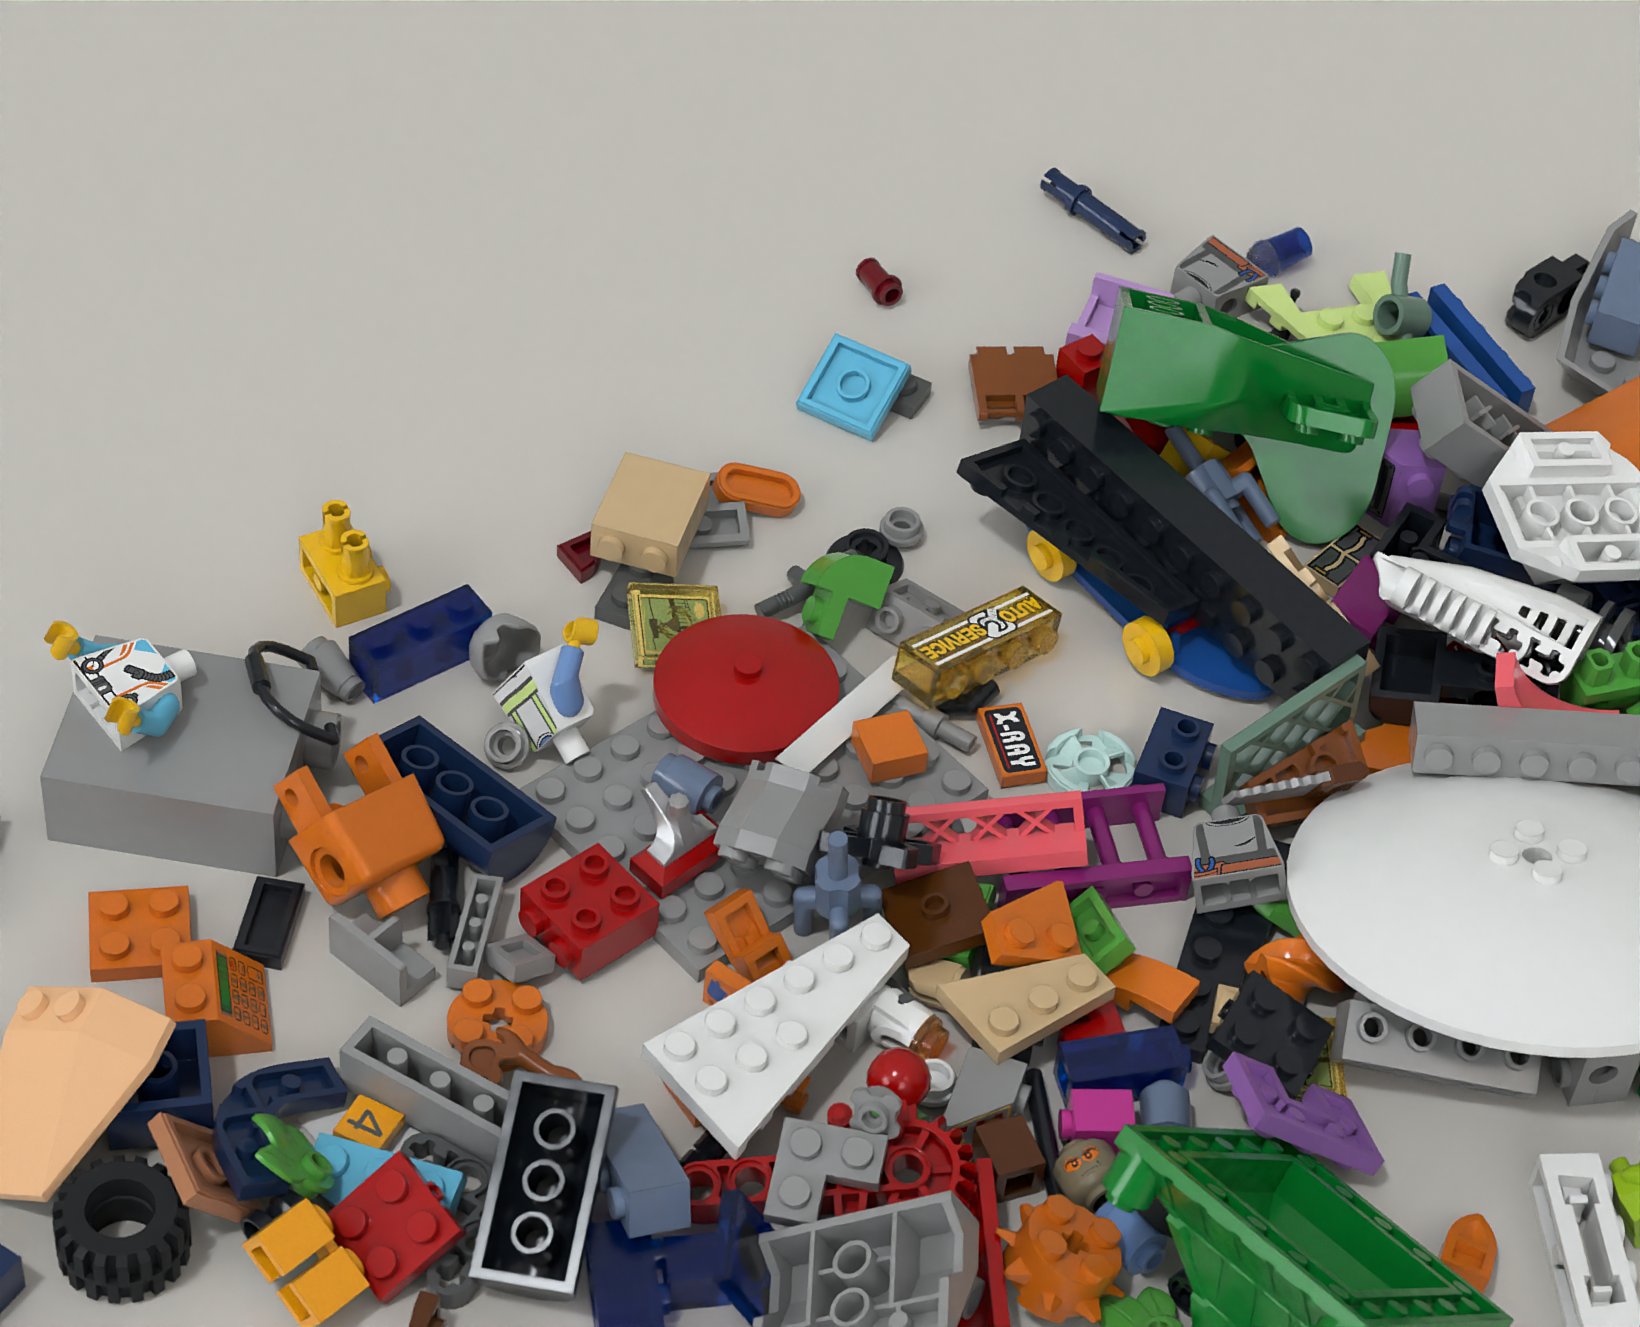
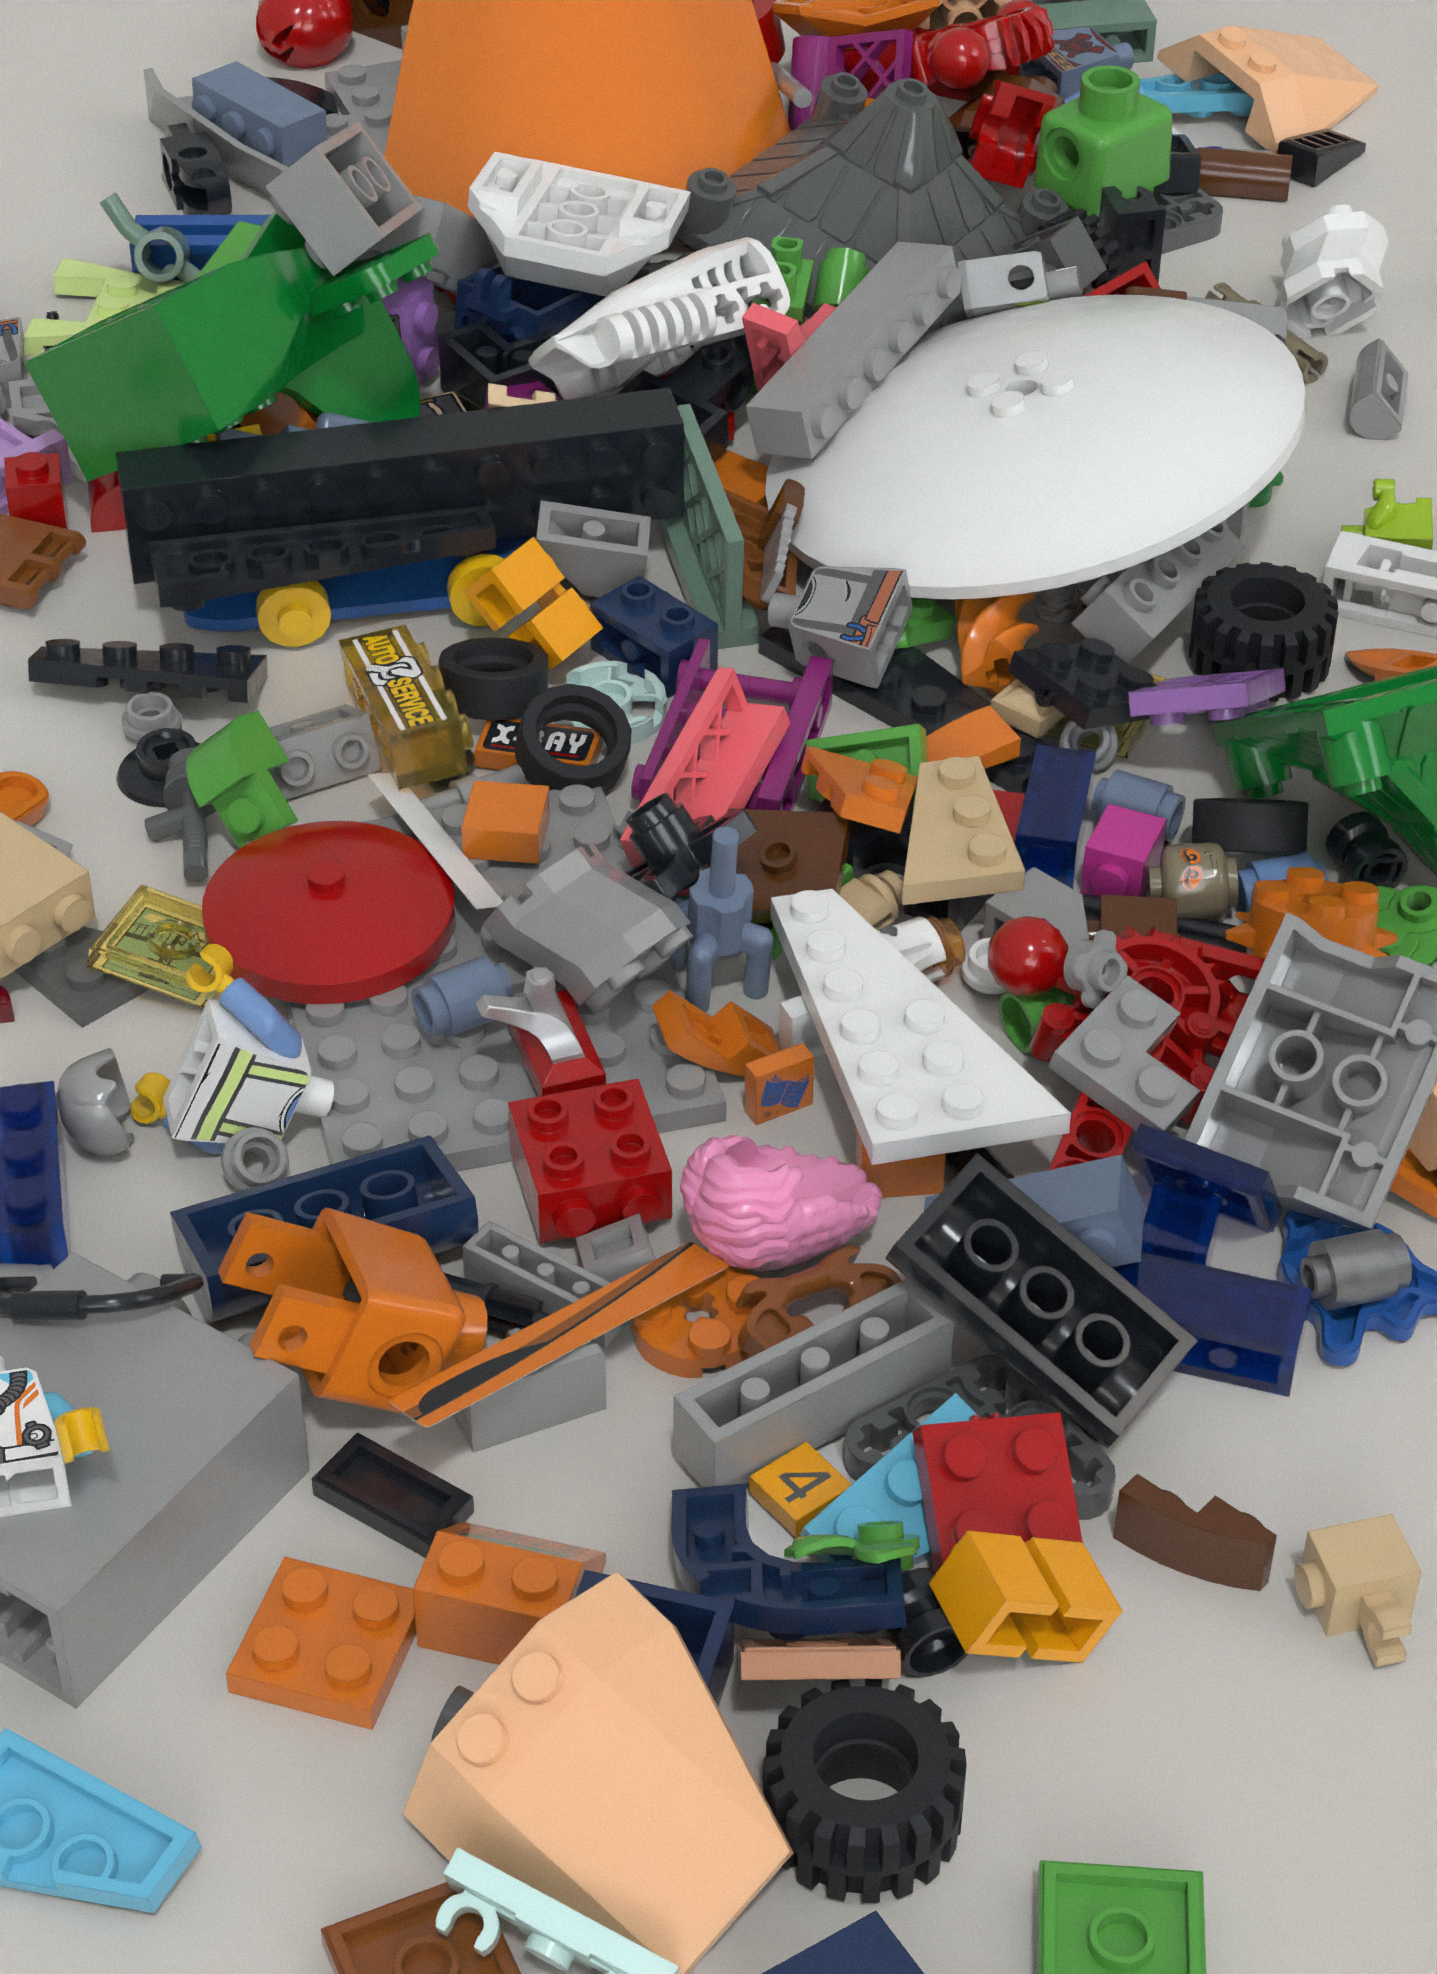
camera: 60 degrees left, 5 degrees down
(407, 943) = (556, 1335): none -> orange sticker
(593, 1016) = (772, 1204): none -> bright pink hair
(948, 514) = (147, 670): none -> black wing
(1003, 722) = (579, 705): none -> black tyre
(1044, 706) = (493, 676): none -> black tyre
(1134, 654) = (520, 581): none -> light orange piece
(1227, 684) = (593, 545): none -> light grey slope
(1386, 359) = (342, 198): none -> light grey brick
(1447, 1109) = (1264, 621): none -> black tyre

